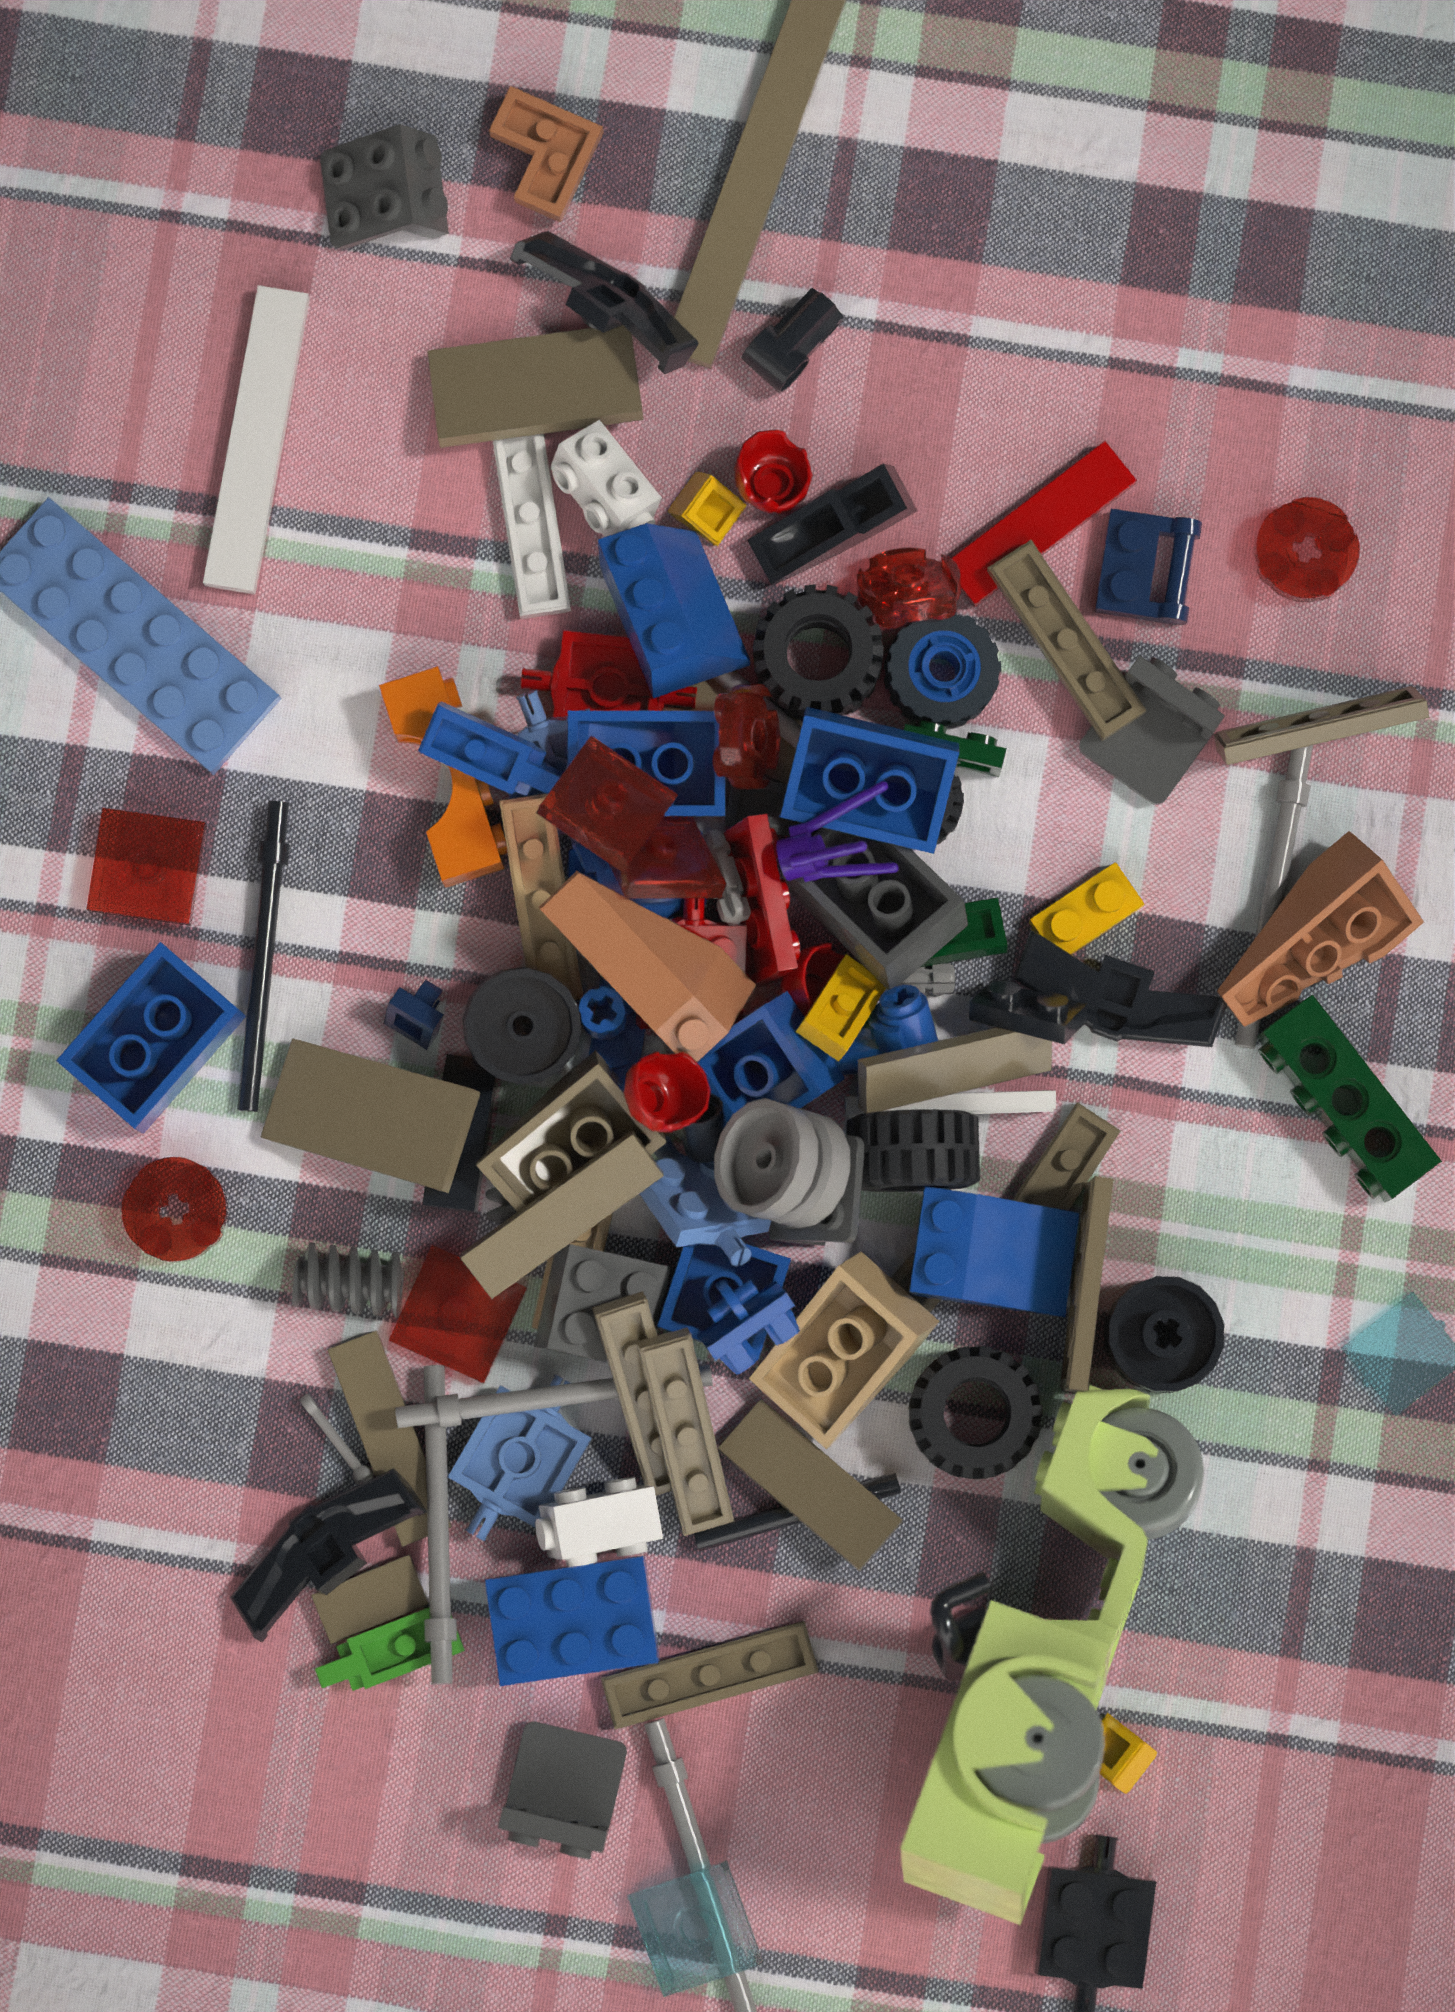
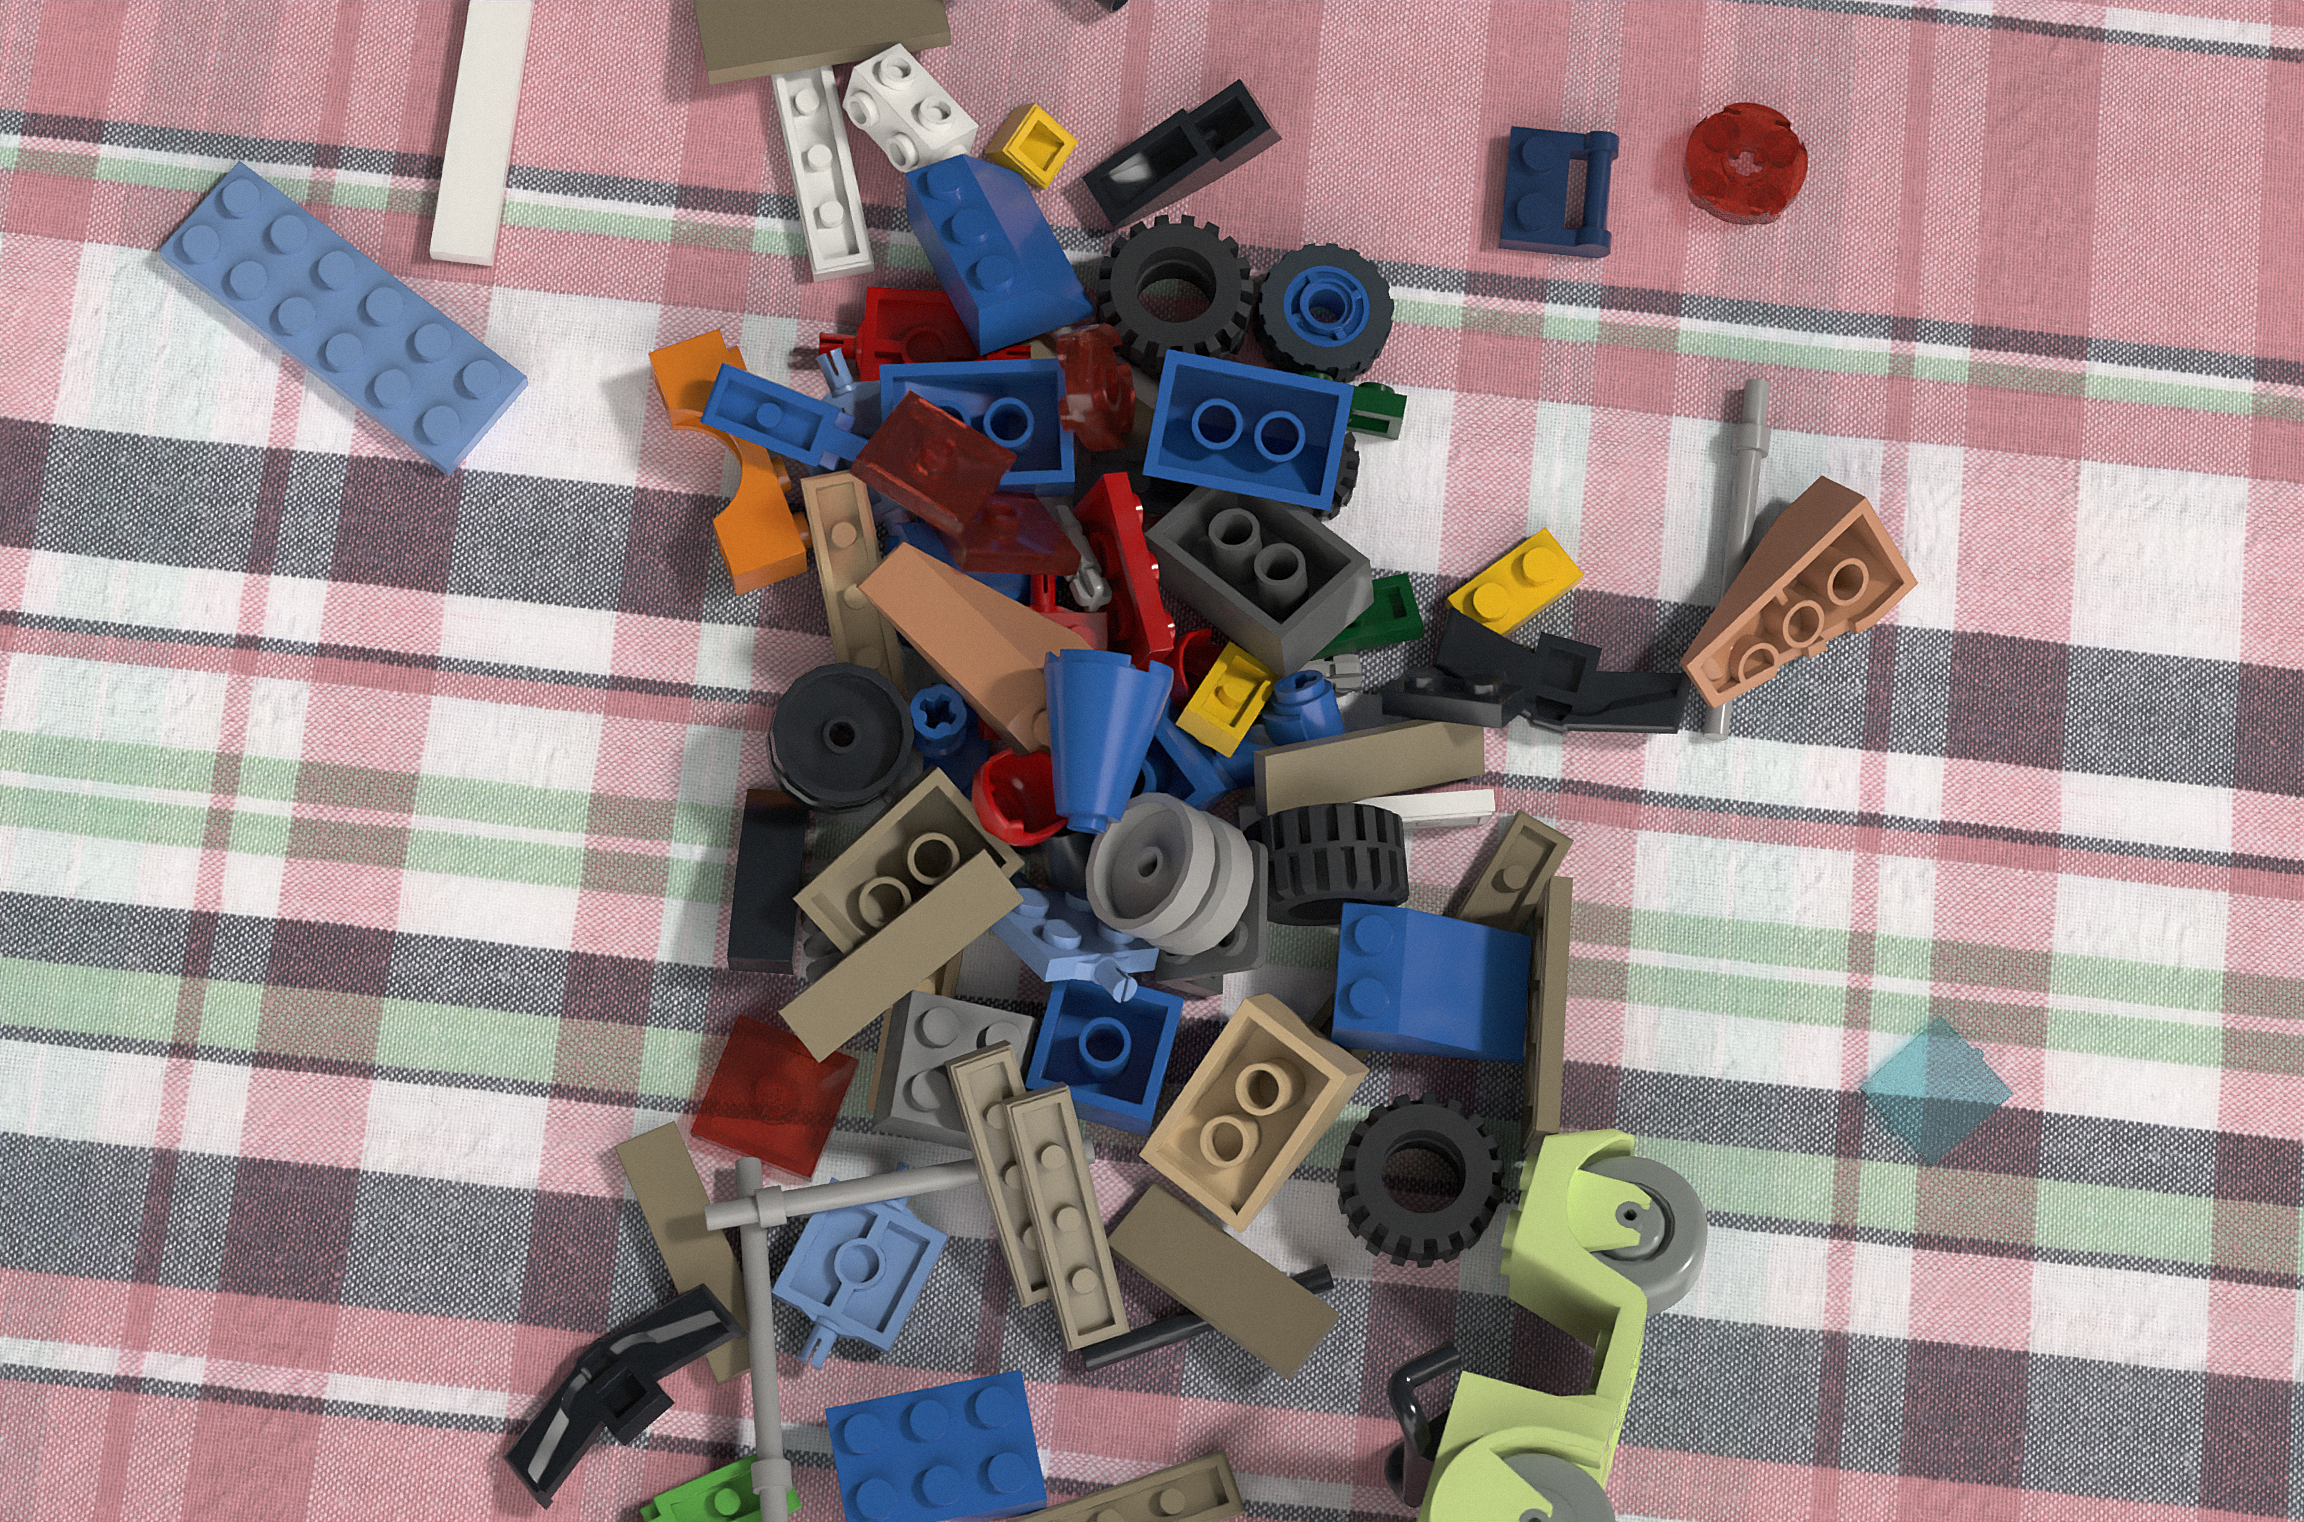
camera: 15 degrees left, 10 degrees down
(146, 866) = (371, 582): clear red plate -> none
(151, 1038) = (384, 778): blue brick -> none
(151, 1192) = (388, 968): clear red plate -> none
(273, 855) = (525, 566): black bar -> none
(348, 1280) = (638, 1058): dark grey piece -> none
(361, 1473) = (660, 1294): light grey hinge -> none
(370, 1115) = (658, 857): dark tan tile -> none
(371, 1599) = (680, 1450): dark tan tile -> none
(417, 1014) = (707, 740): dark blue tile -> none
(584, 1524) = (944, 1336): white brick -> none
(730, 1048) = (1100, 731): none -> blue cone
(741, 1316) = (1160, 1055): blue hips -> none
(772, 472) = (1107, 97): red hair -> none
(807, 855) = (1175, 514): dark purple plant -> none
(909, 587) = (1276, 218): clear red plate -> none
(1045, 517) = (1427, 149): red tile -> none
(1066, 640) = (1469, 275): dark tan tile -> none
(1164, 741) = (1579, 371): dark grey bracket -> none
(1194, 1327) = (1654, 1039): black wheel -> none
(1321, 725) = (1778, 359): dark tan tile -> none
(1408, 1153) = (1840, 754): dark green brick -> none

